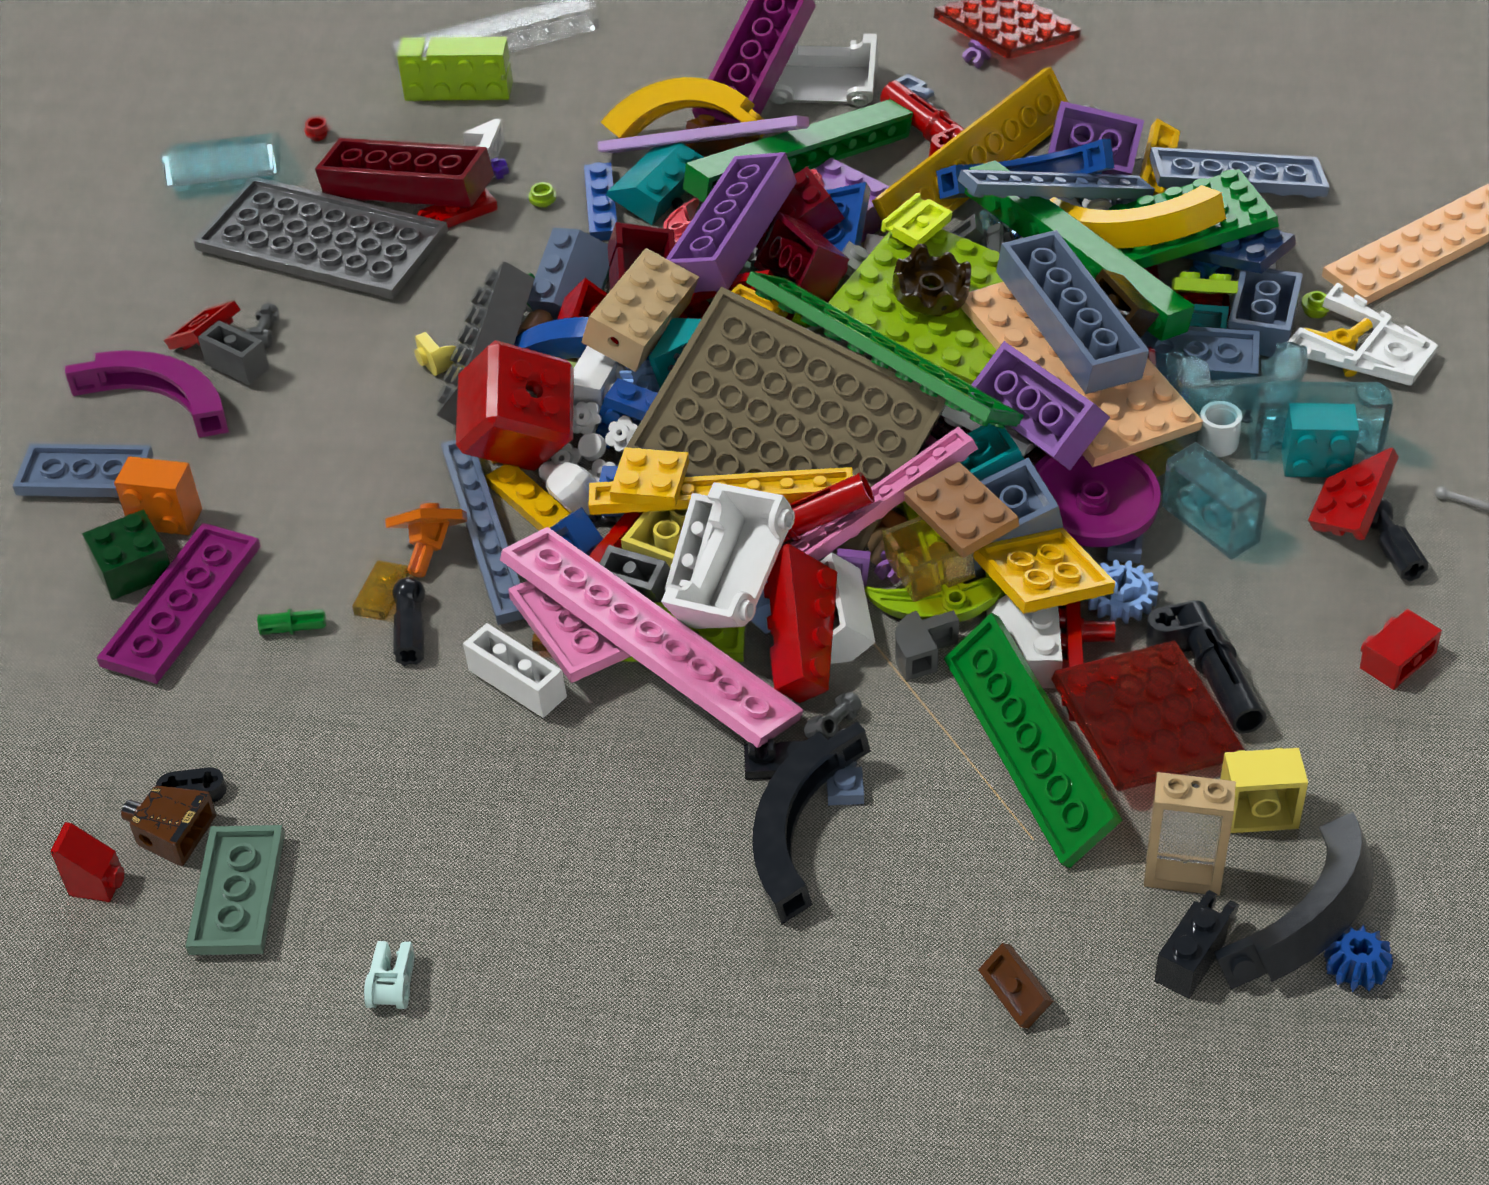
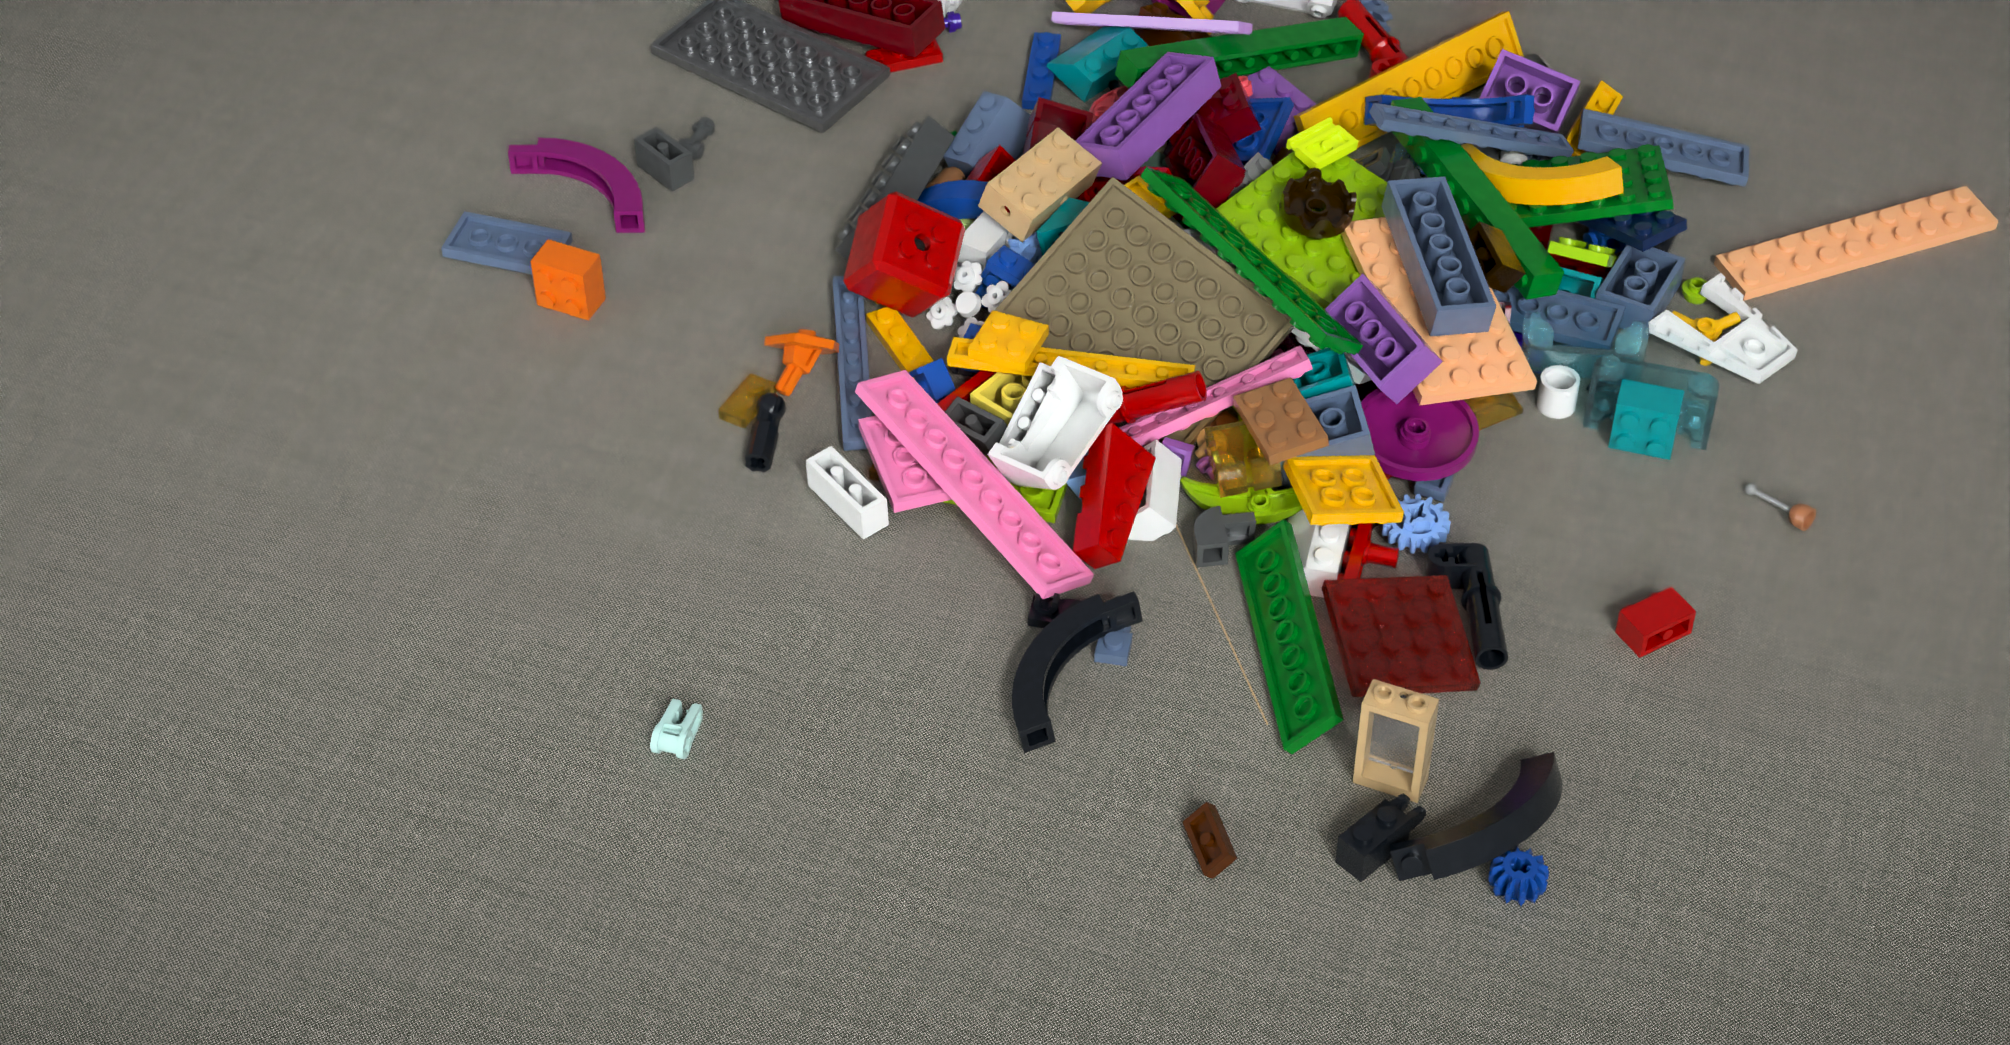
camera: 10 degrees right, 0 degrees up
(86, 864) = (441, 588): red slope -> none
(127, 554) = (530, 328): dark green brick -> none
(170, 821) = (519, 566): reddish brown torso -> none
(178, 603) = (567, 379): magenta plate -> none
(188, 334) = (625, 134): red plate -> none
(196, 780) = (543, 541): black beam -> none
(236, 890) = (563, 634): sand green plate -> none
(291, 621) = (661, 414): green axle -> none
(431, 355) = (844, 193): light yellow plate -> none
(542, 194) = (987, 55): lime plate -> none
(568, 484) = (936, 334): white piece -> none
(847, 707) = (1134, 579): dark grey bar -> none
(1214, 500) = (1527, 456): clear light blue brick -> none
(1267, 788) = (1479, 719): light yellow brick -> none
(1353, 496) = (1661, 476): red wing -> none
(1398, 544) = (1687, 523): black piece -> none

